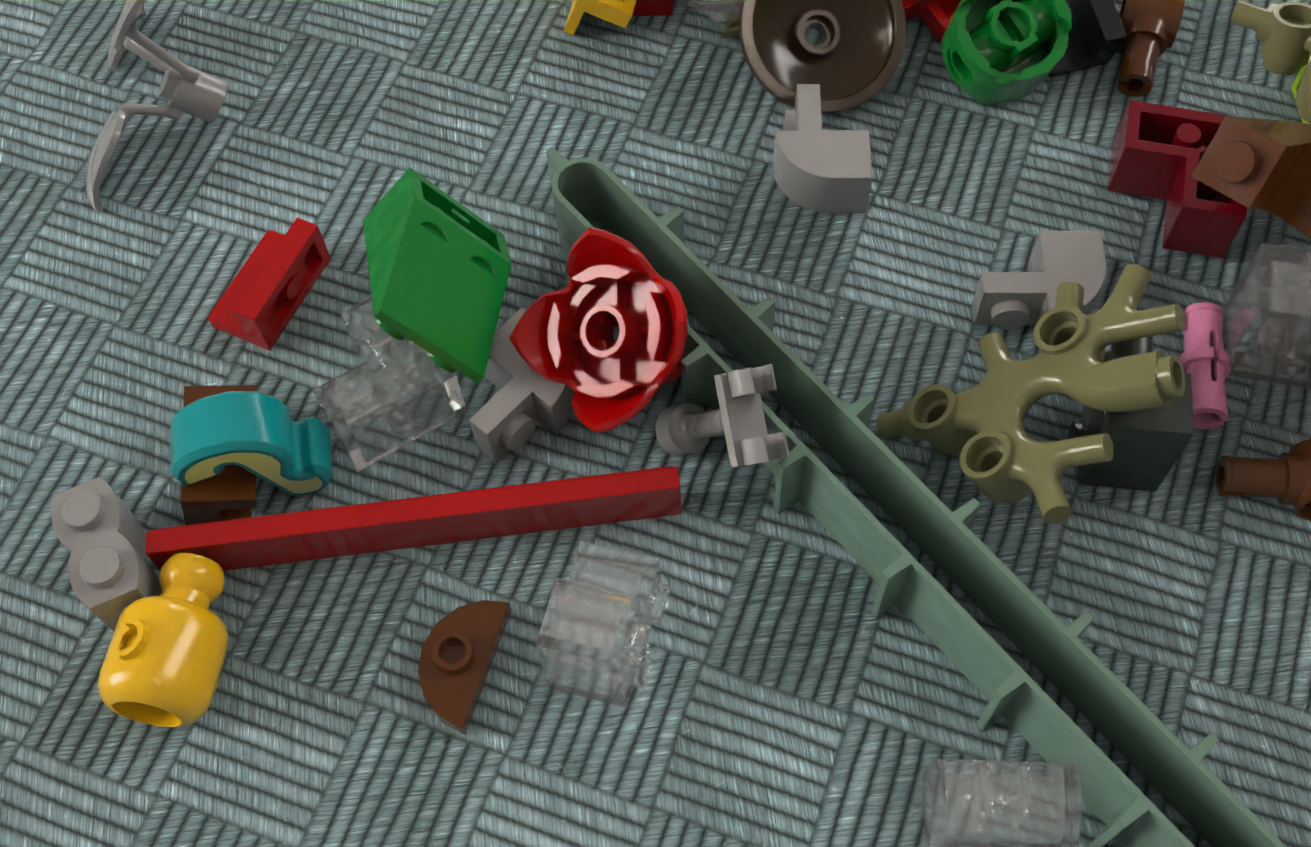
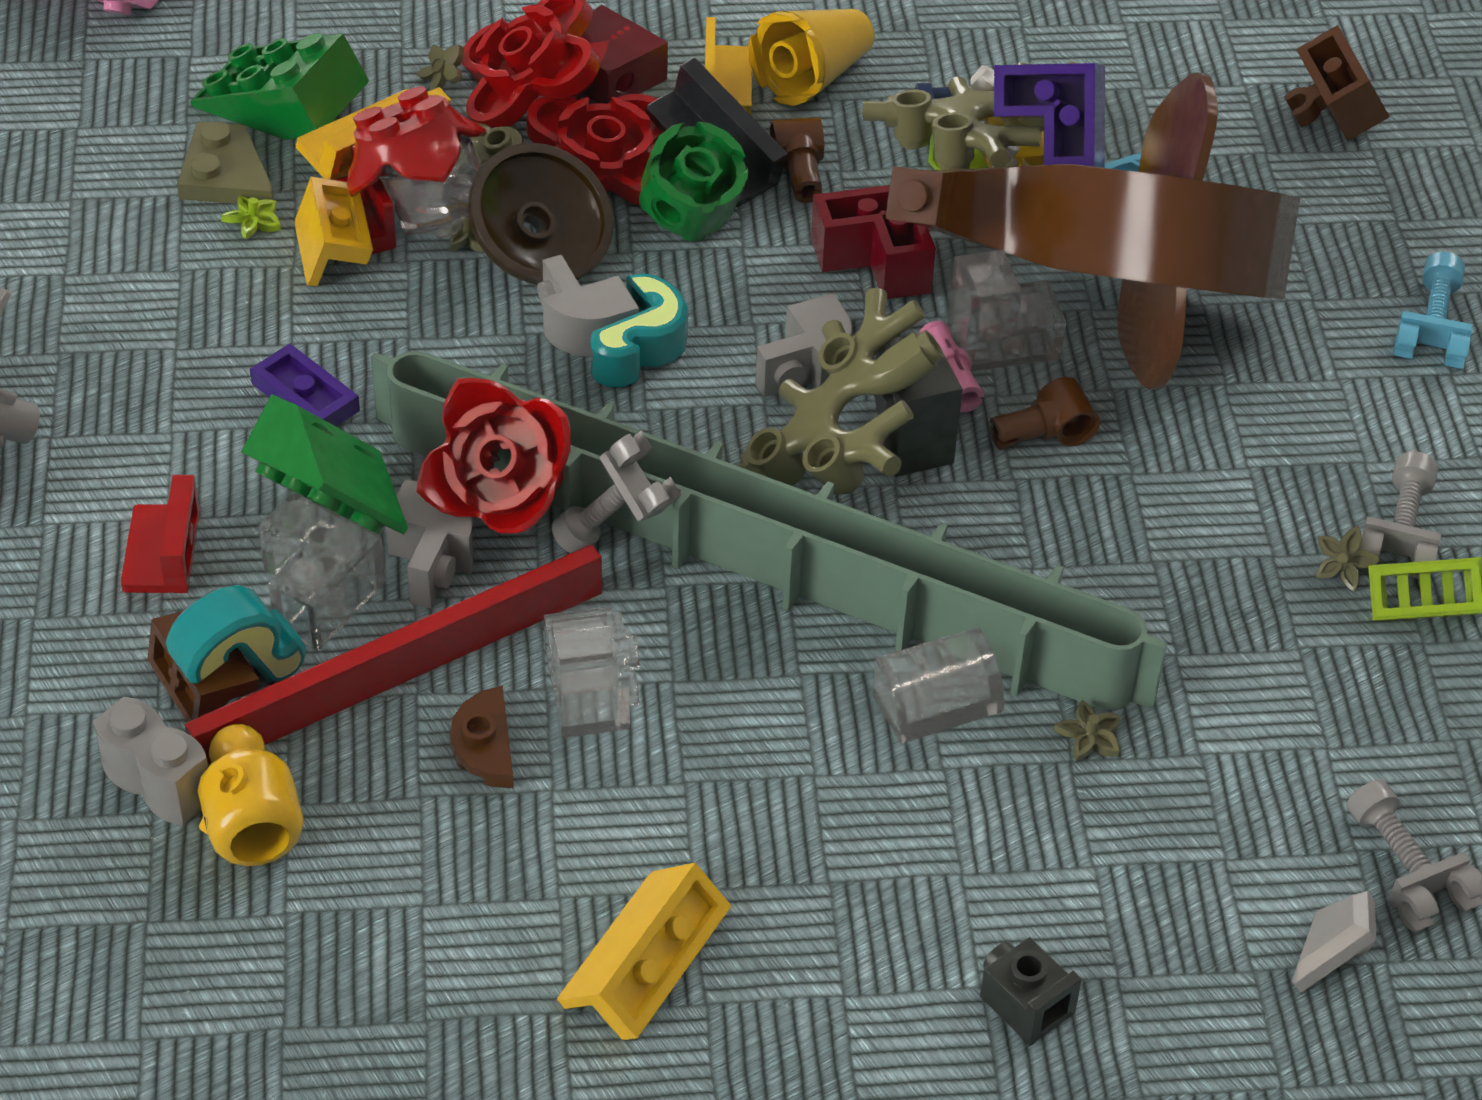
camera: 30 degrees left, 15 degrees down
(493, 155) = (306, 384): none -> dark purple plate
(869, 212) = (643, 339): none -> teal animal

